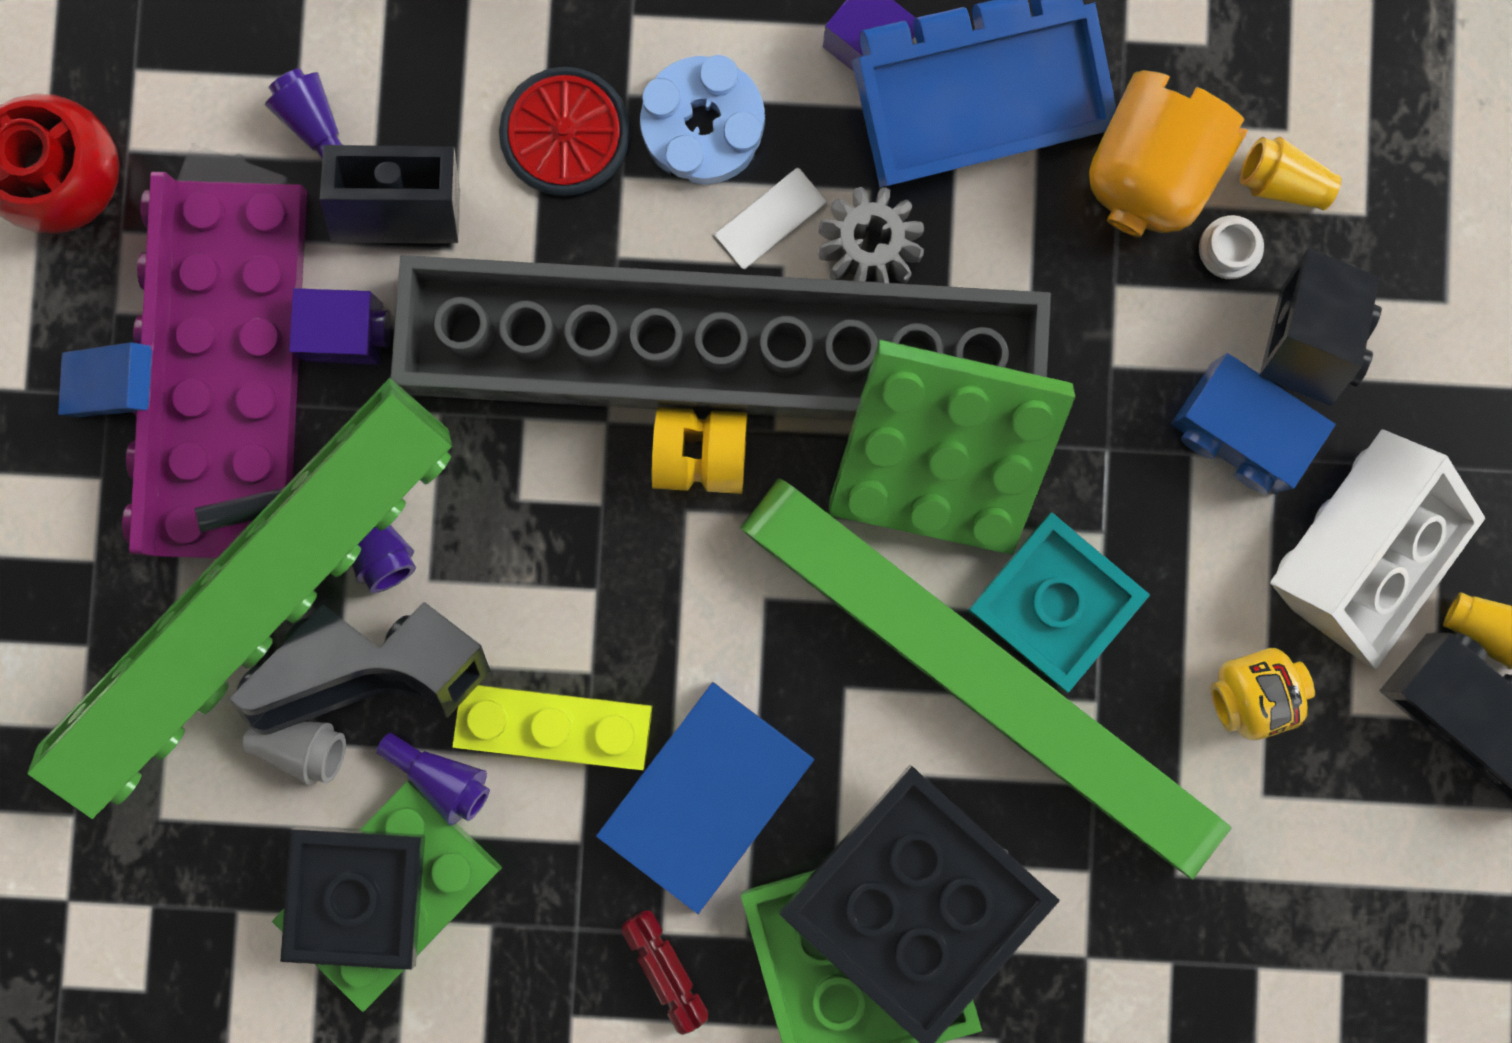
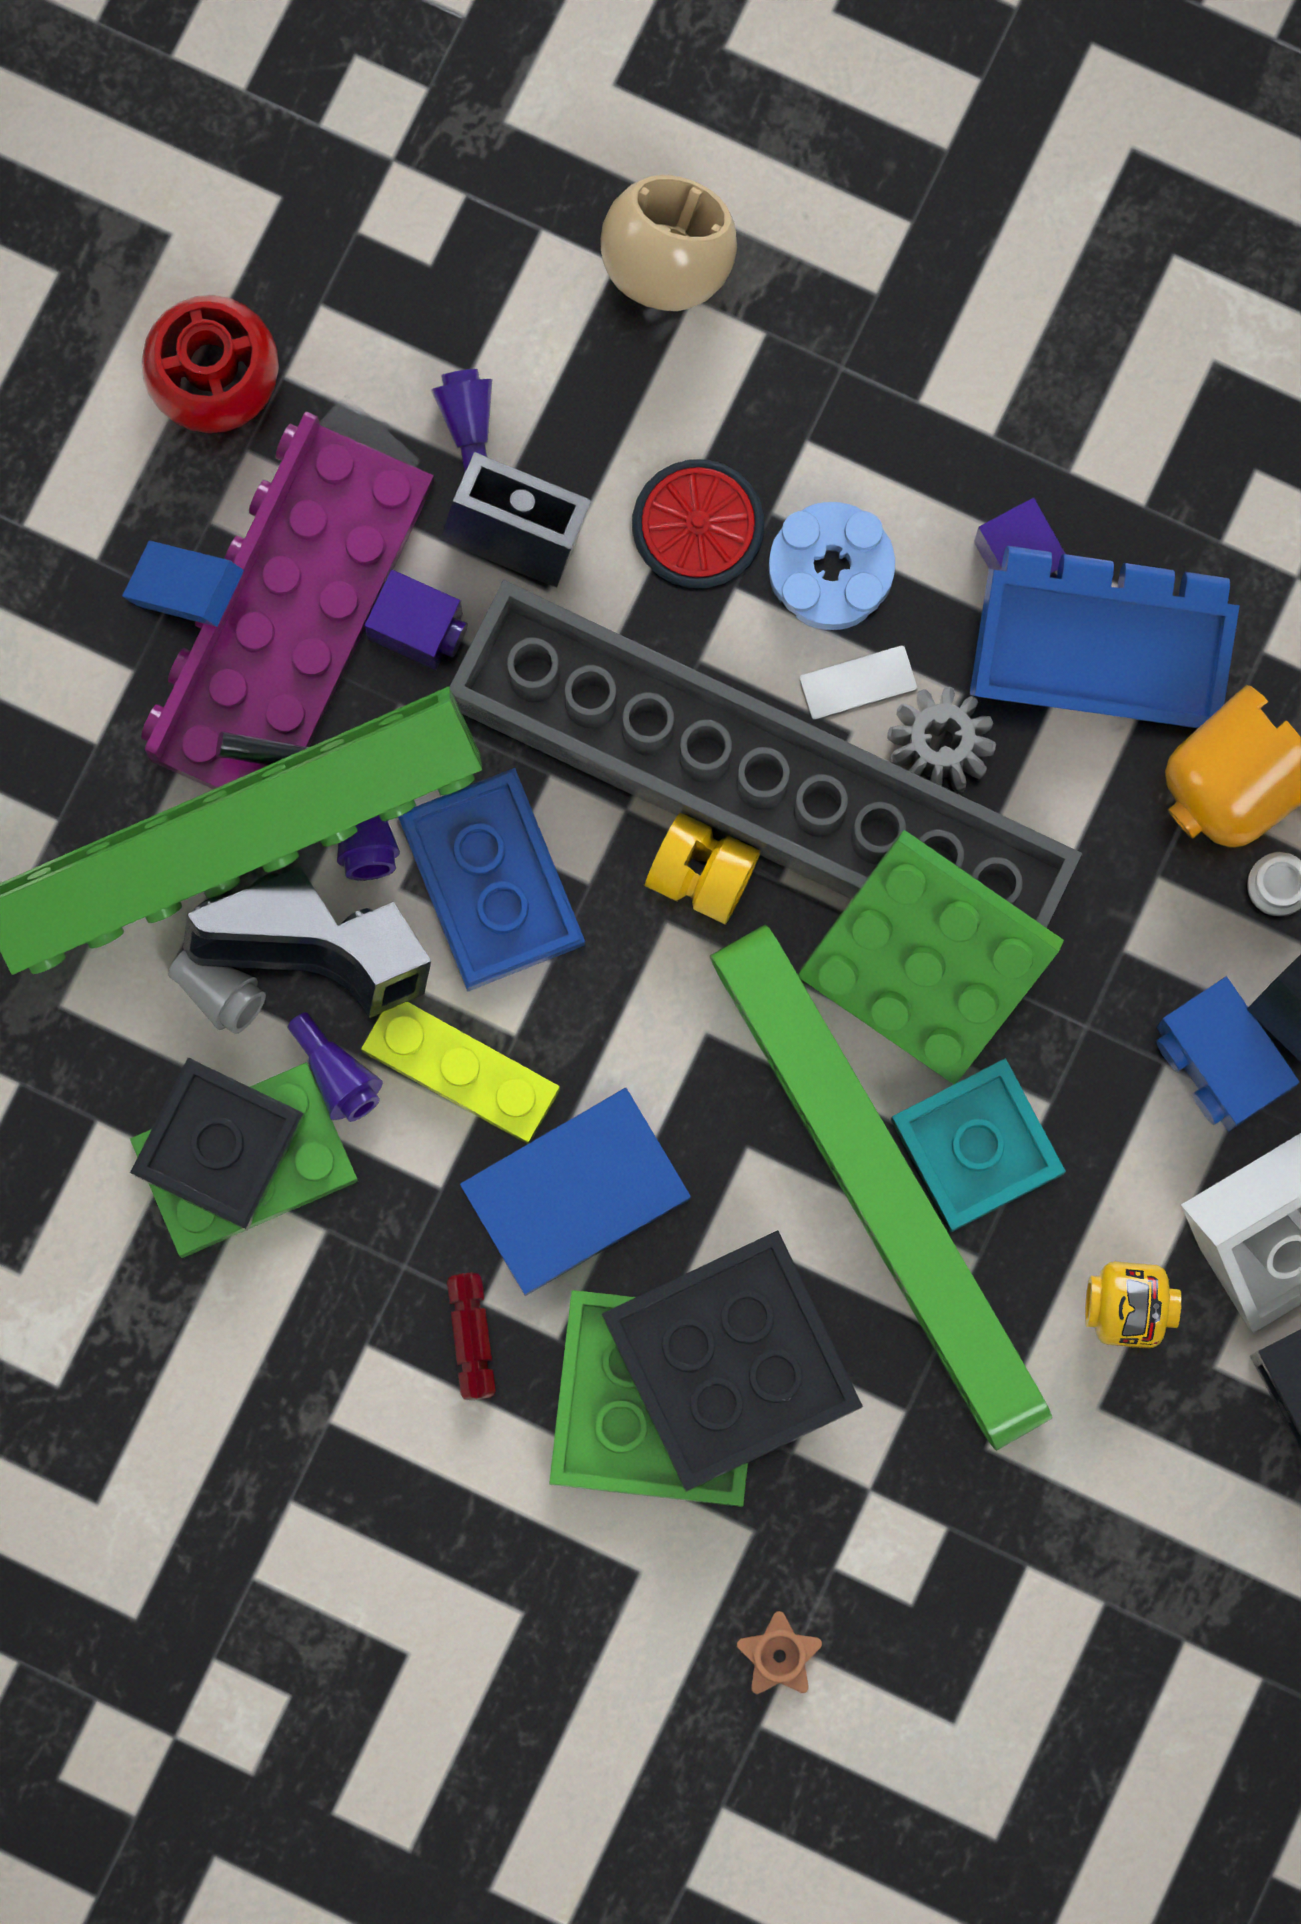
camera: 20 degrees right, 5 degrees down
(508, 538) = (491, 879): none -> blue tile

